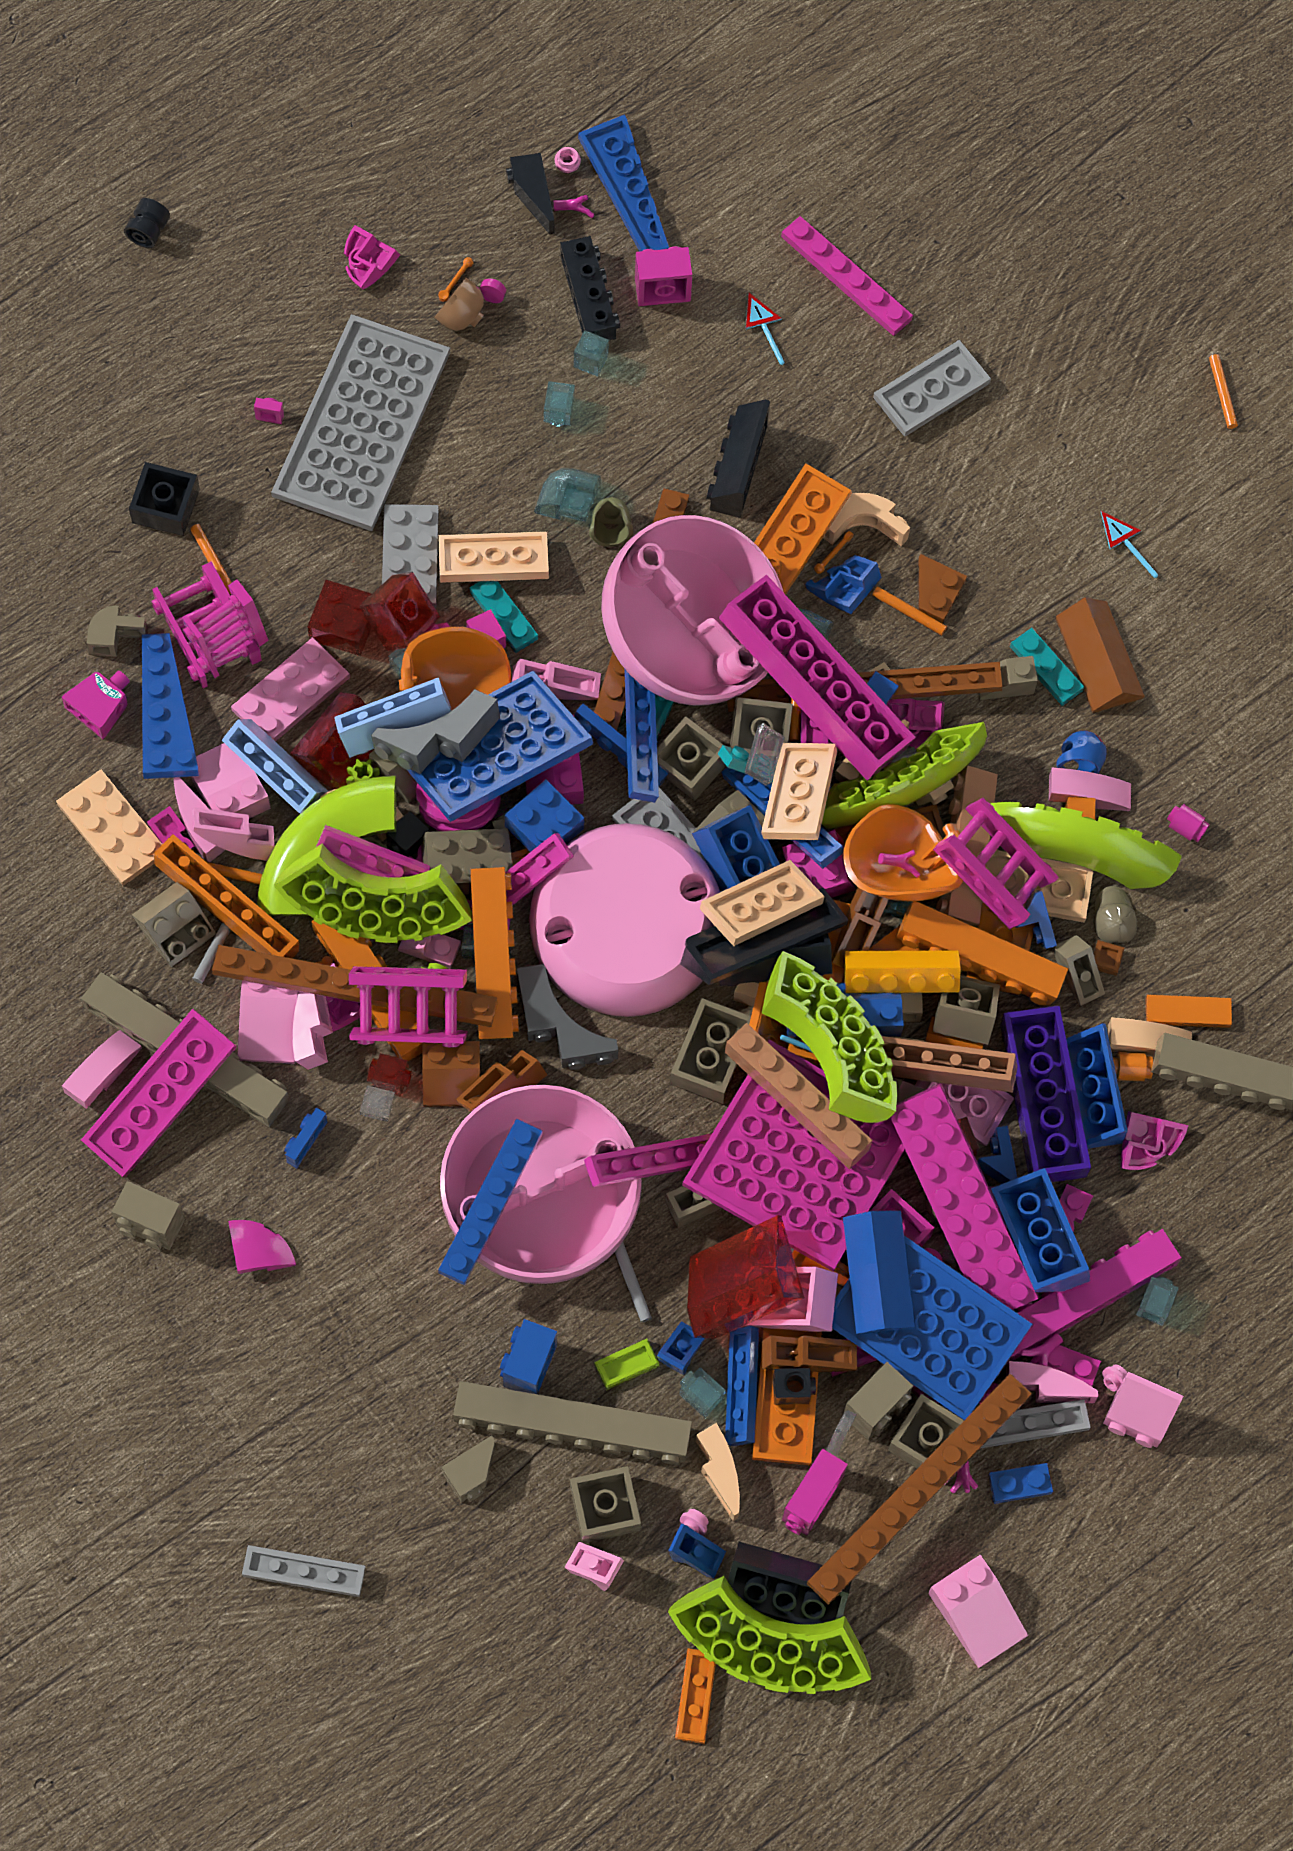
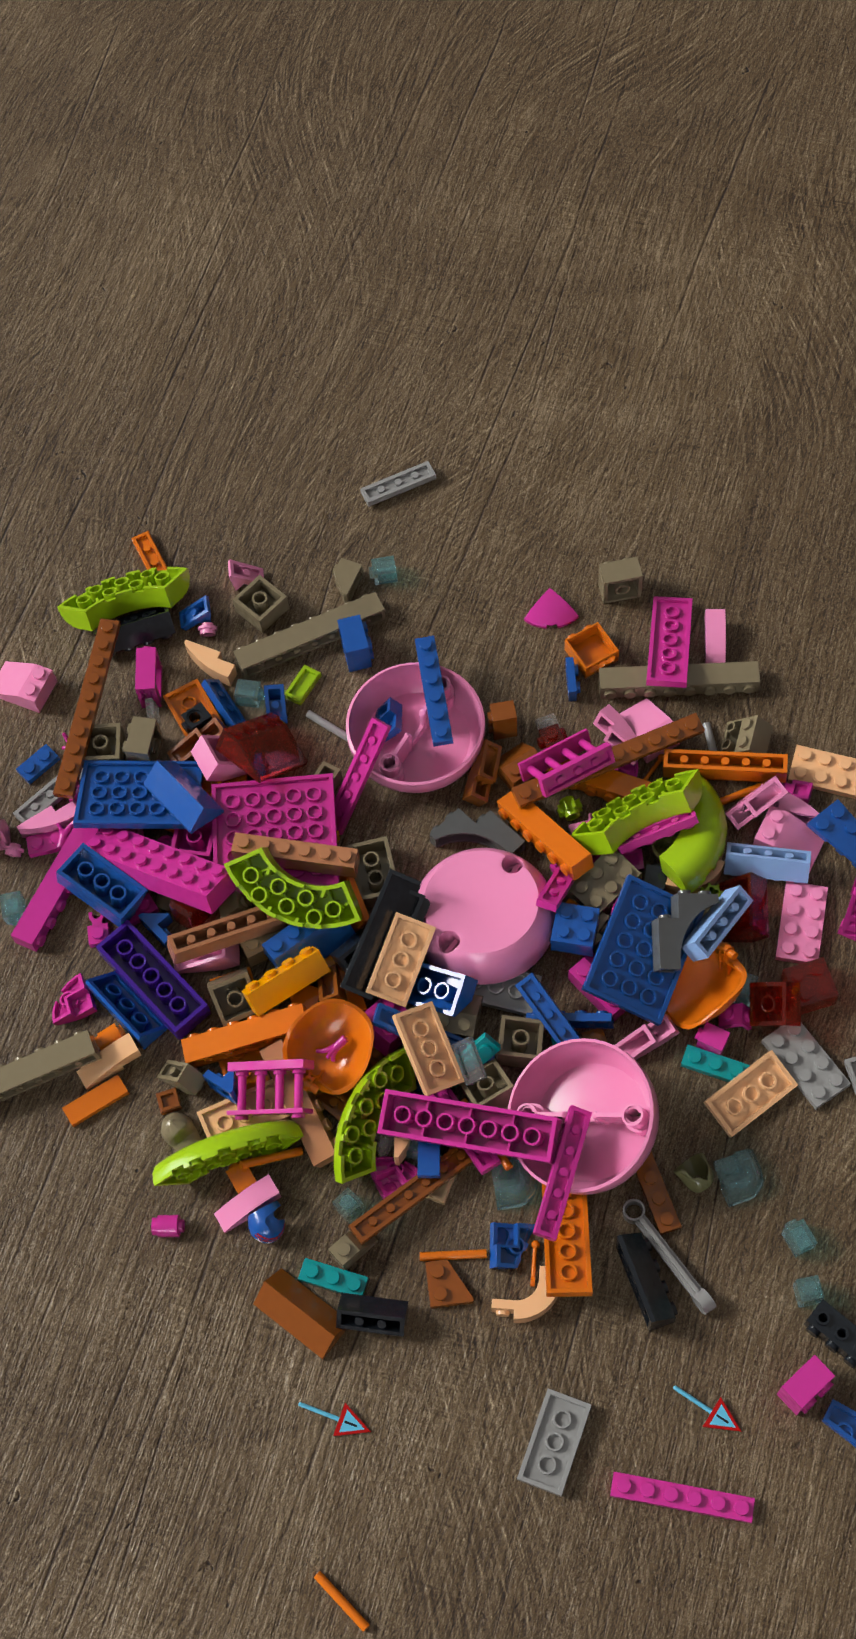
camera: 155 degrees right, 5 degrees down
(252, 1159) = (591, 649): none -> orange piece
(417, 1449) = (383, 570): none -> clear light blue brick
(429, 1131) = (502, 720): none -> dark orange brick
(566, 1226) = (391, 714): none -> blue slope
(698, 488) = (699, 1295): none -> light grey piece
(756, 565) = (562, 1173): none -> dark pink plate
(989, 713) = (348, 1205): none -> clear light blue brick
(1031, 600) = (372, 1314): none -> black brick

